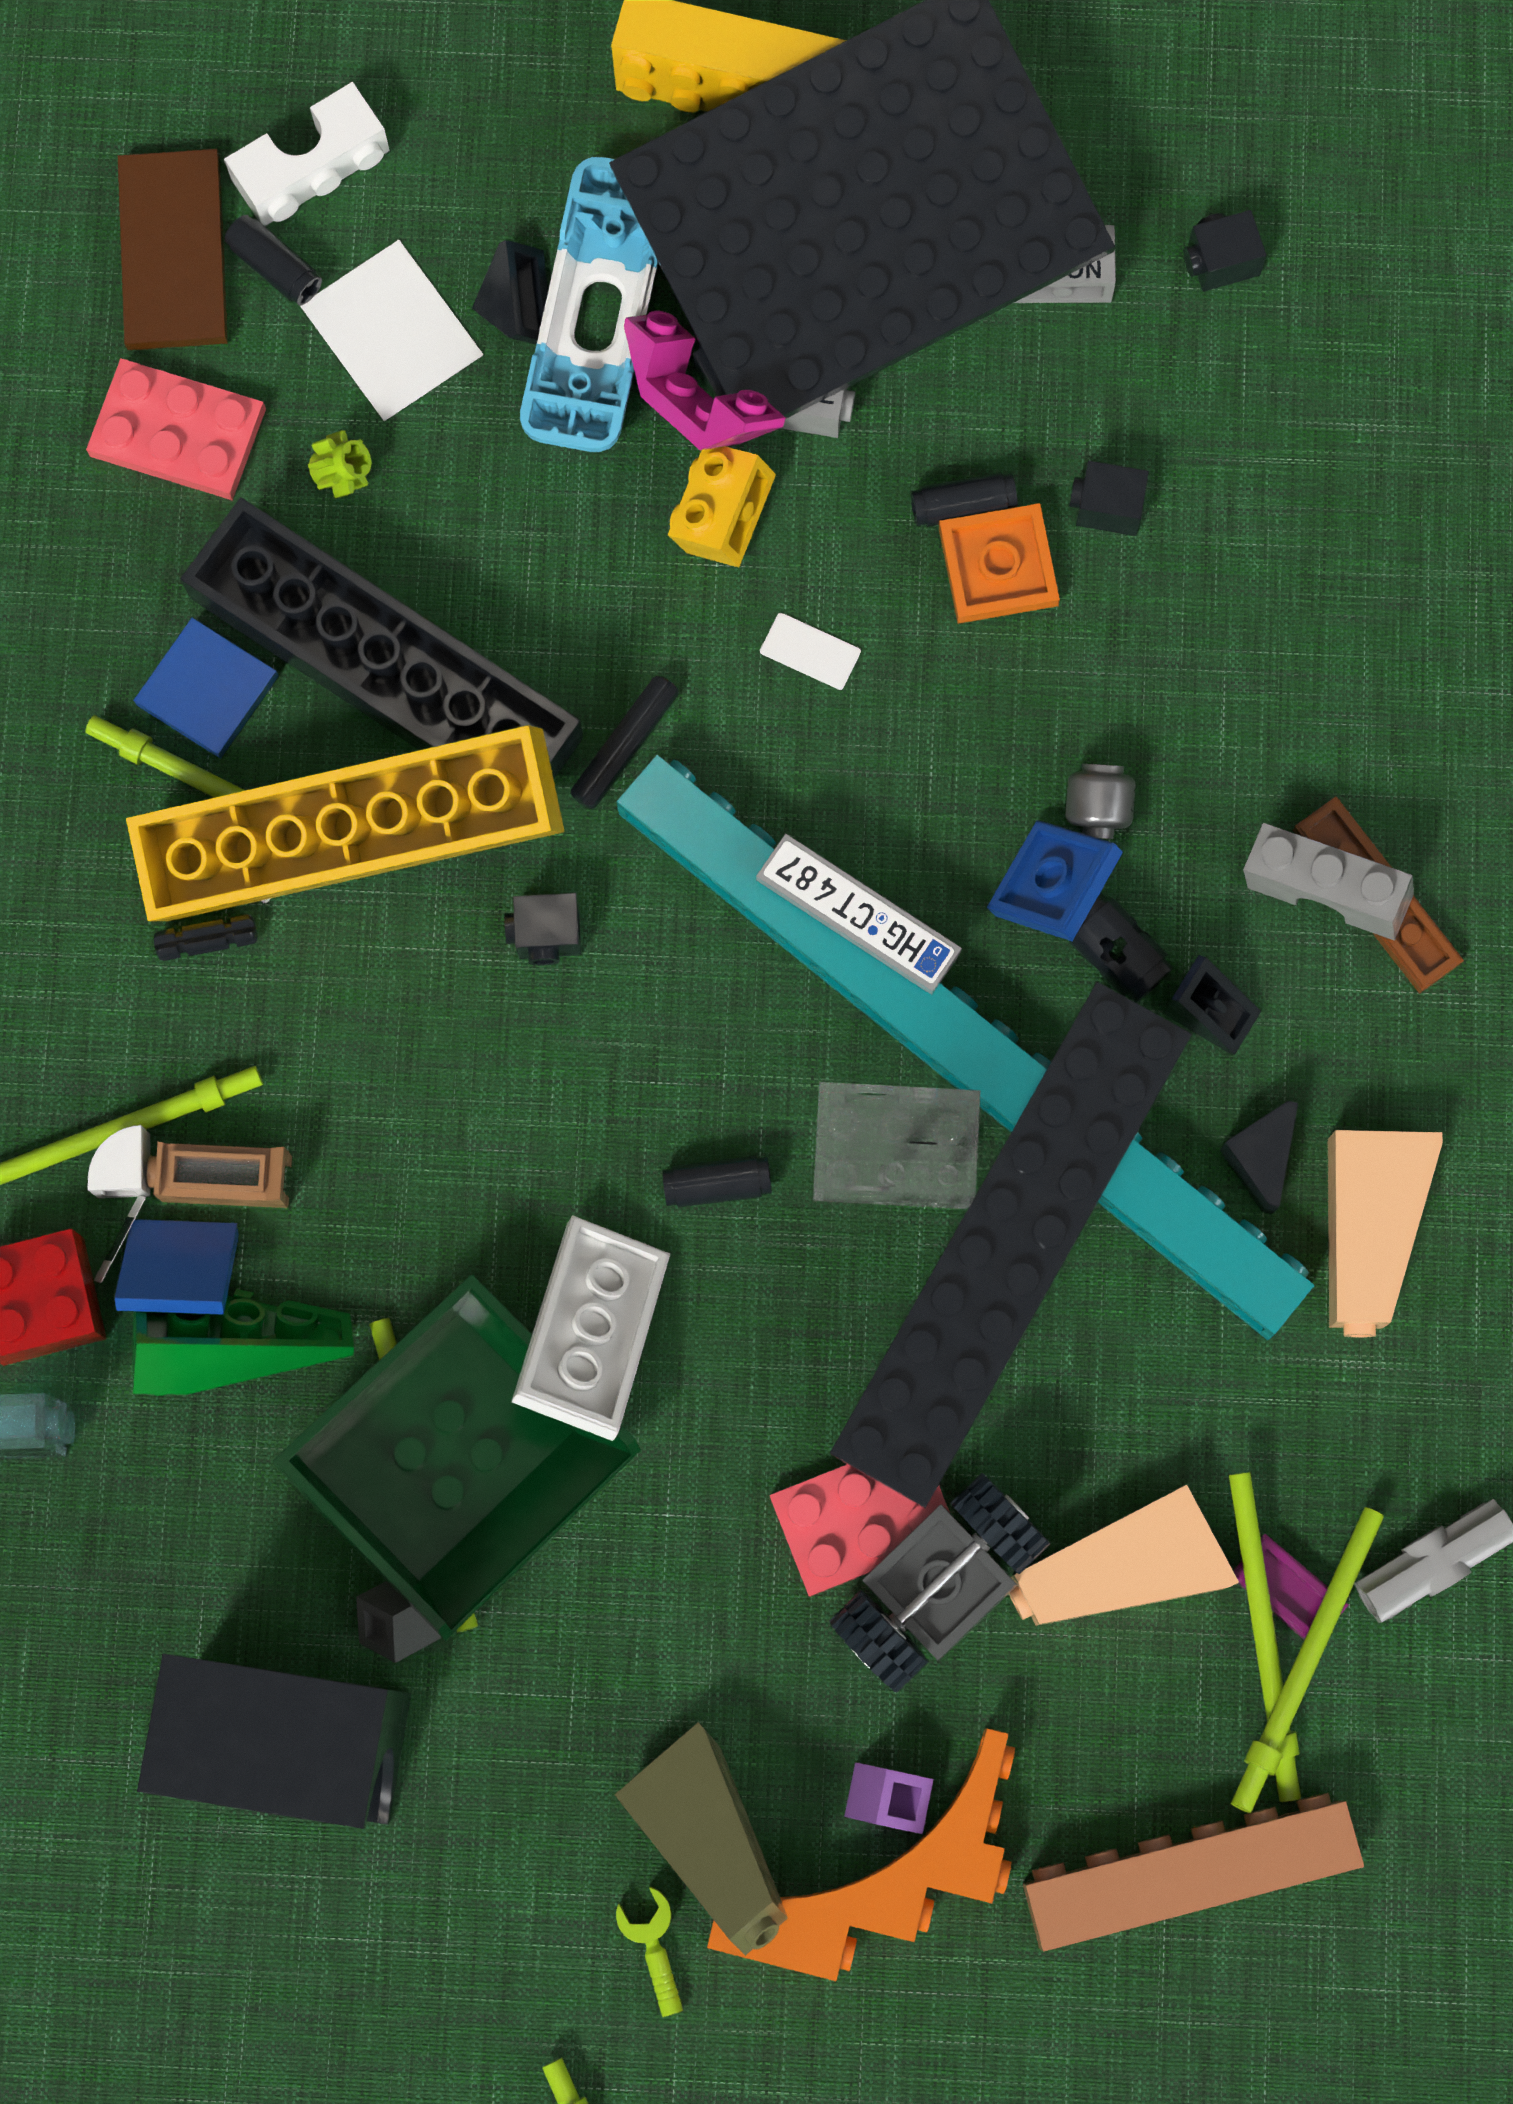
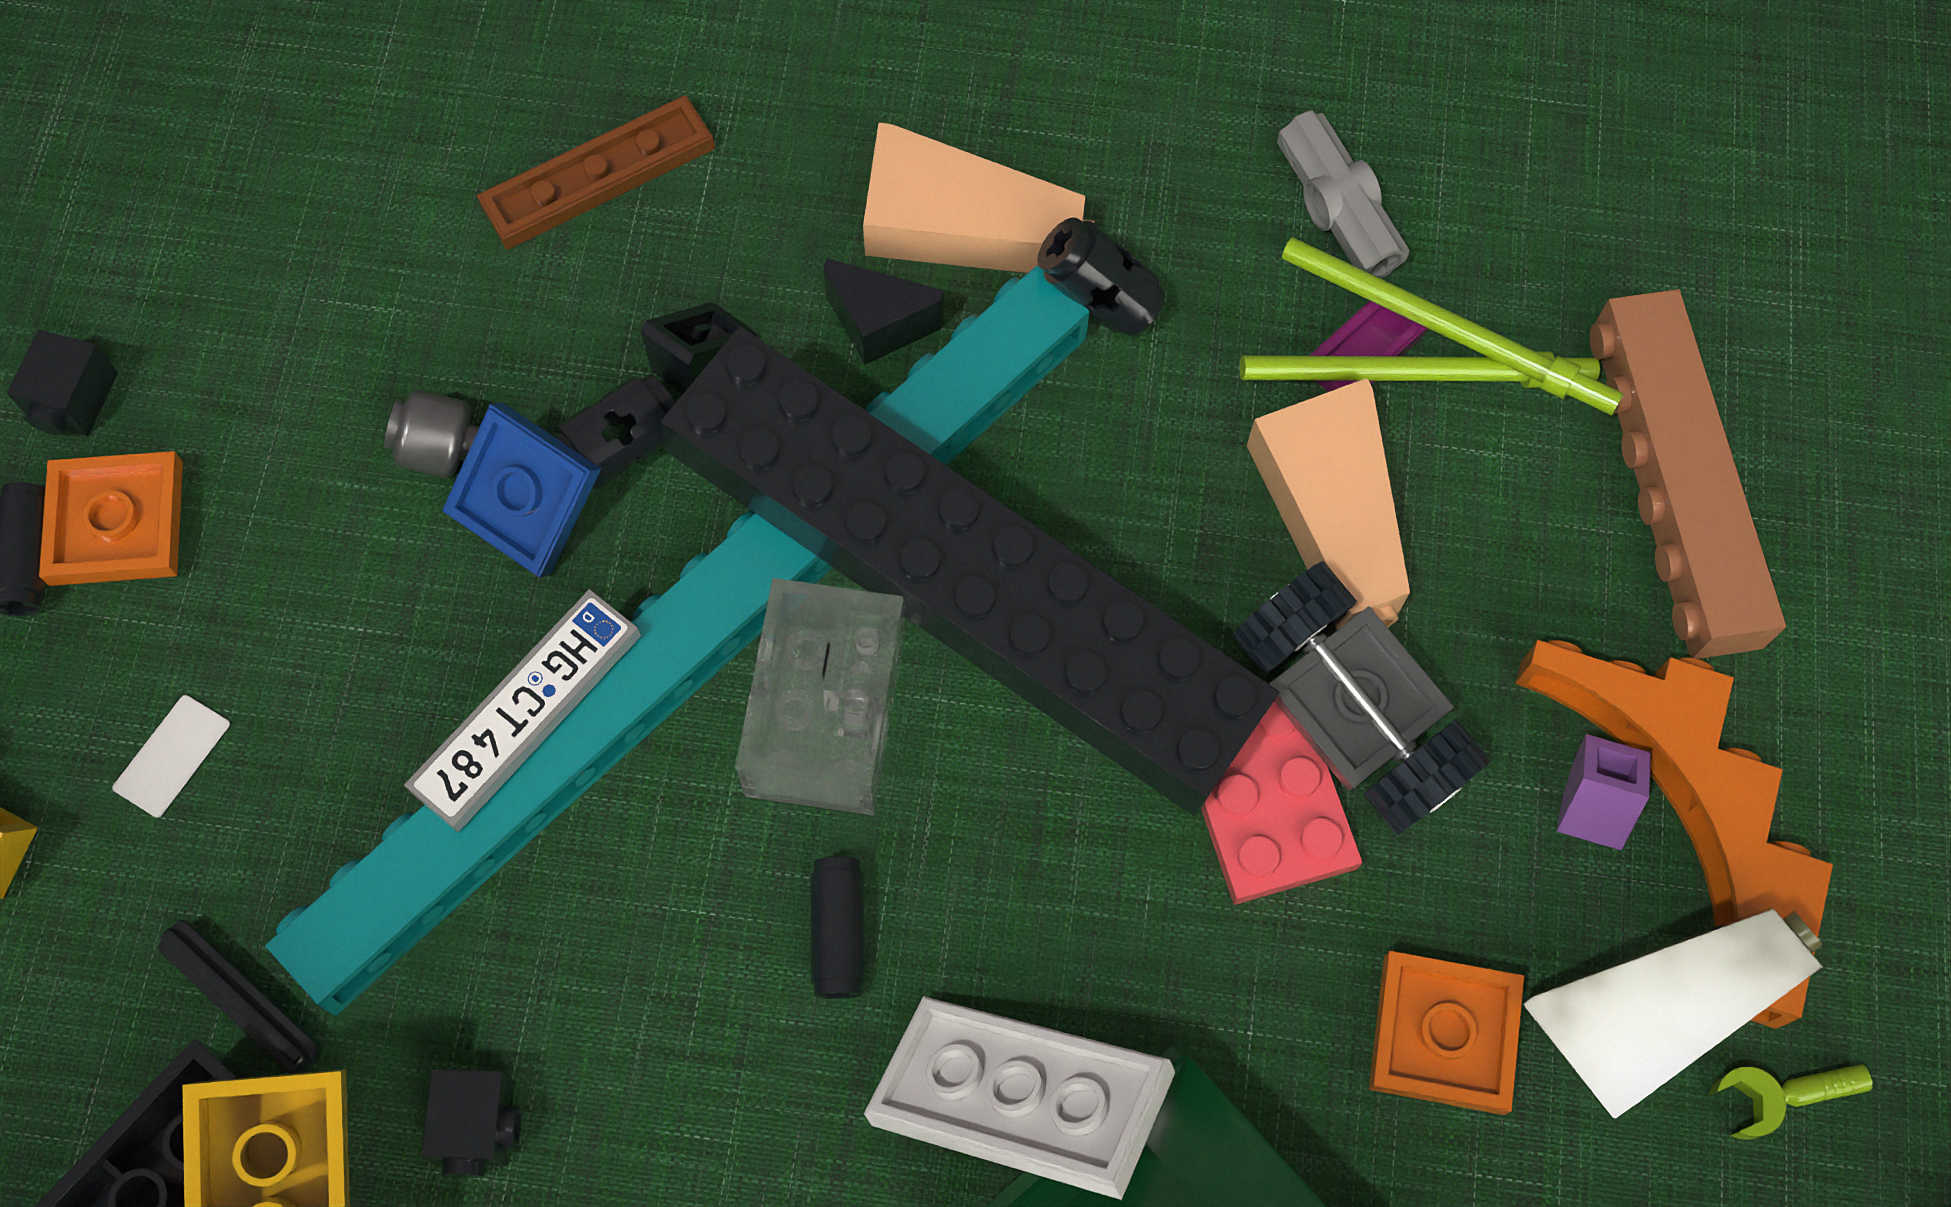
camera: 90 degrees left, 10 degrees down
(676, 1667) = (1447, 1033): none -> orange plate
(1309, 1342) = (1101, 276): none -> black piece
(1358, 888) = (551, 232): light grey arch -> none

